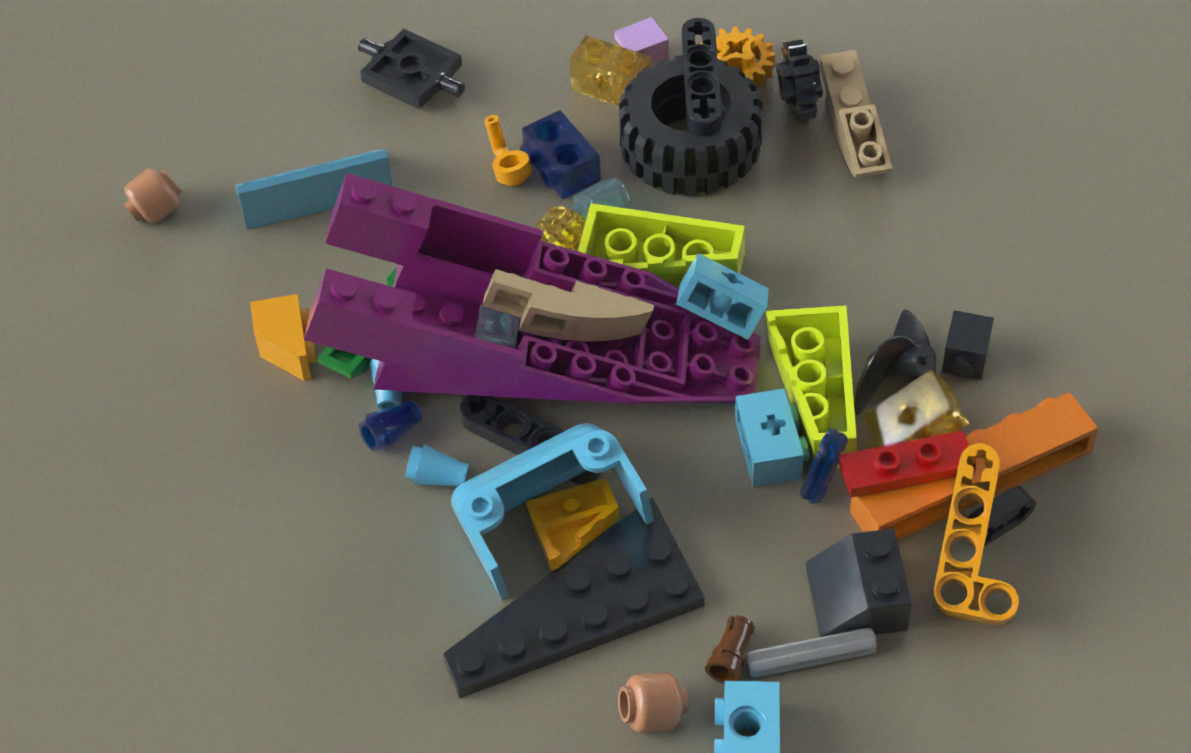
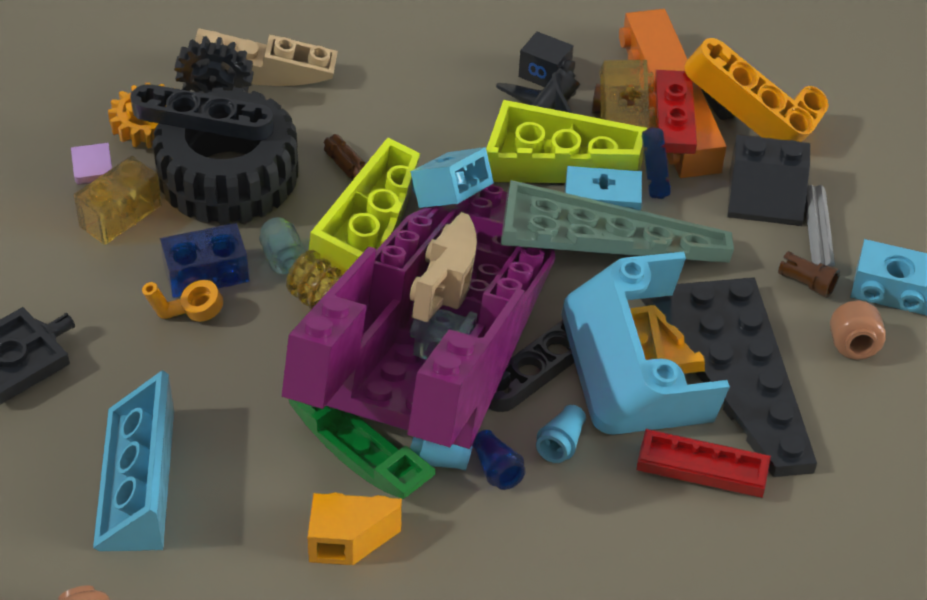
camera: 80 degrees left, 5 degrees down
(431, 591) = (703, 463): none -> red plate
(696, 418) = (575, 223): none -> sand green wing
(749, 217) = (343, 155): none -> reddish brown axle

